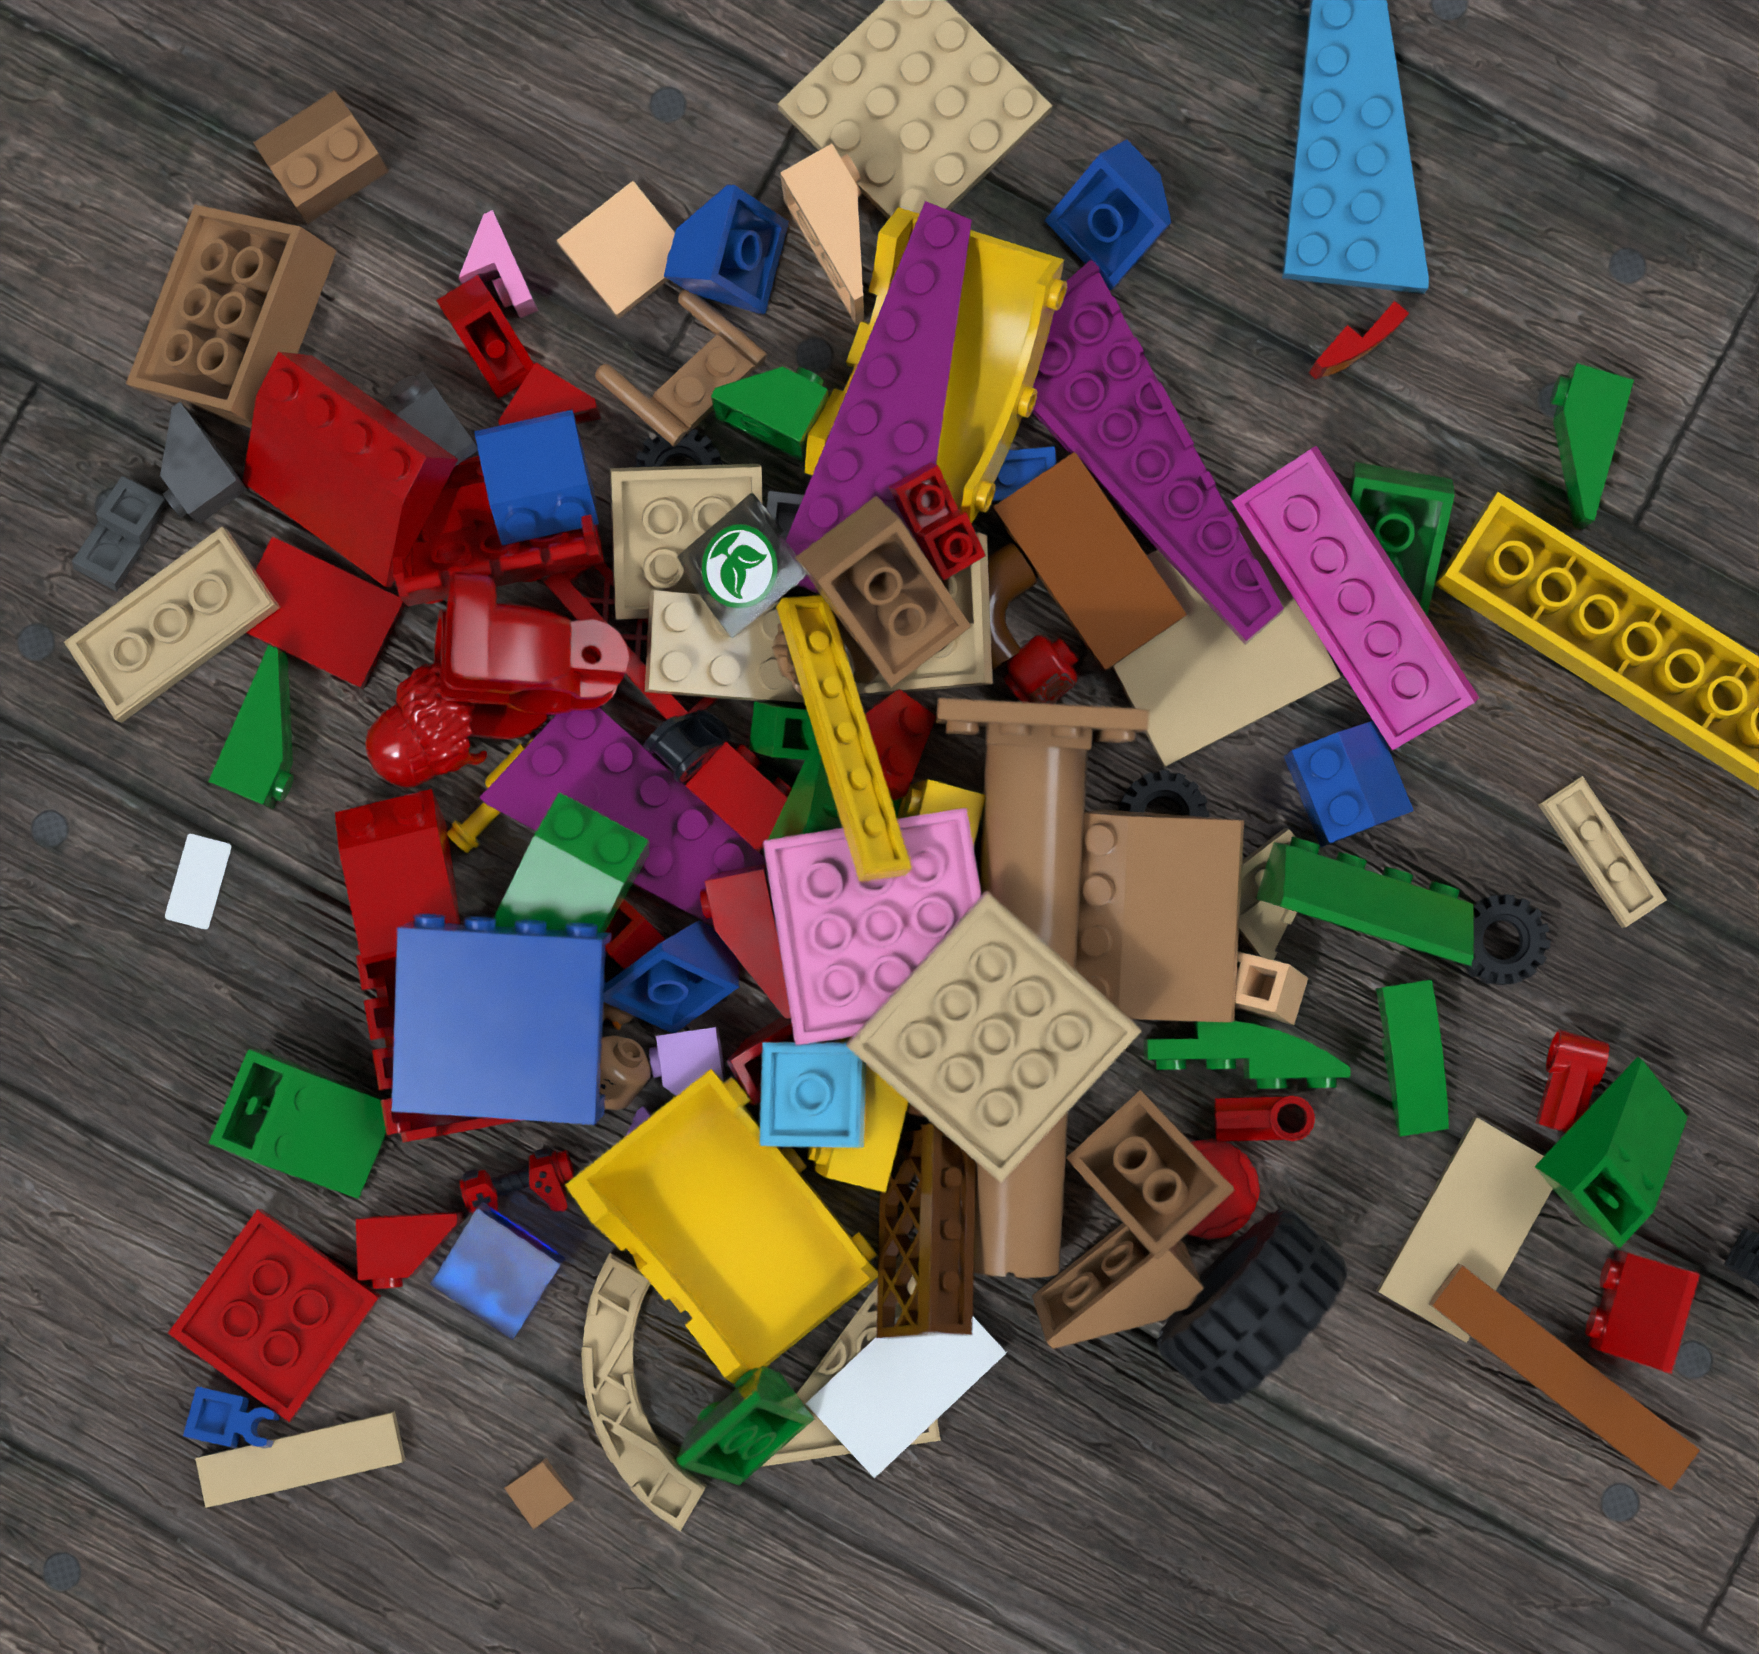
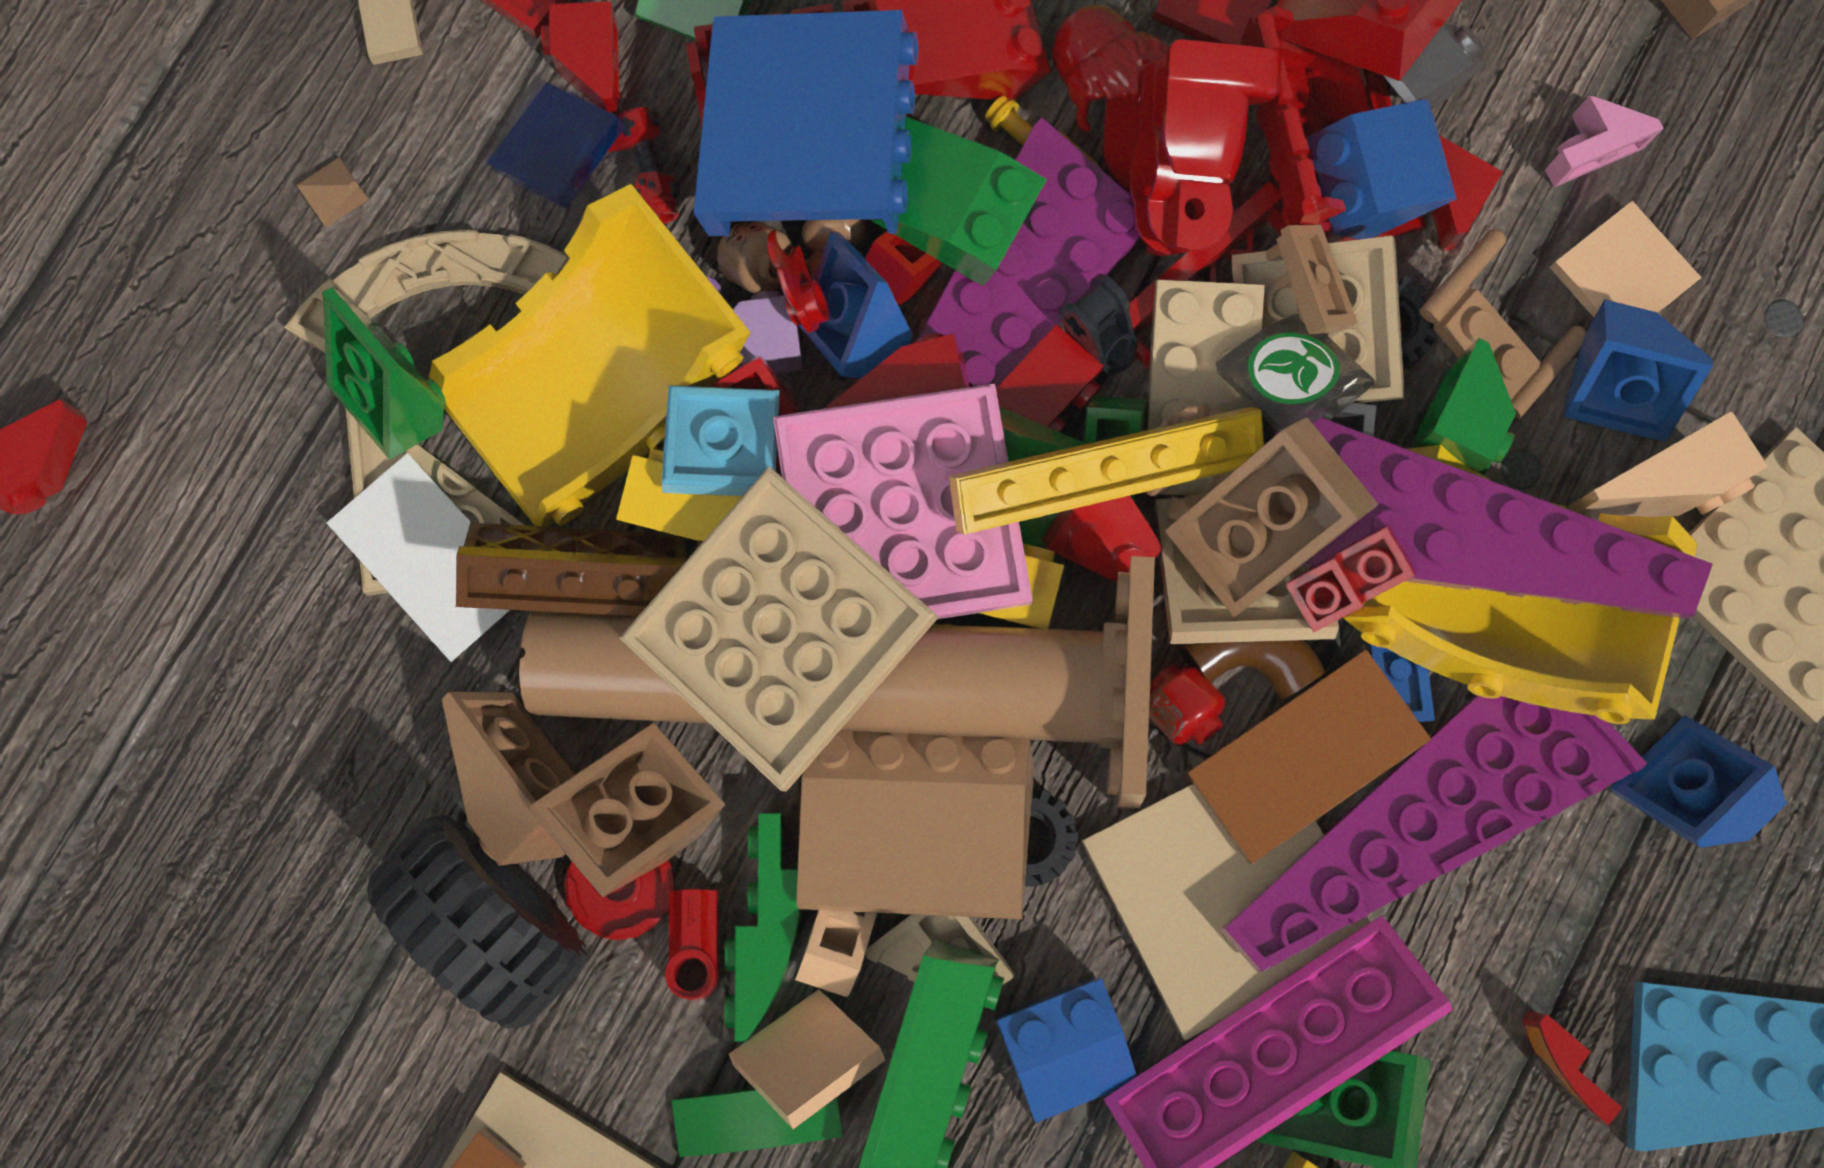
camera: 85 degrees right, 5 degrees down
(487, 335) = (1529, 127): red slope -> none
(651, 544) = (1313, 278): none -> medium nougat plate
(663, 1023) = (802, 296): none -> red plate
(1364, 1012) = (806, 1058): none -> light nougat tile

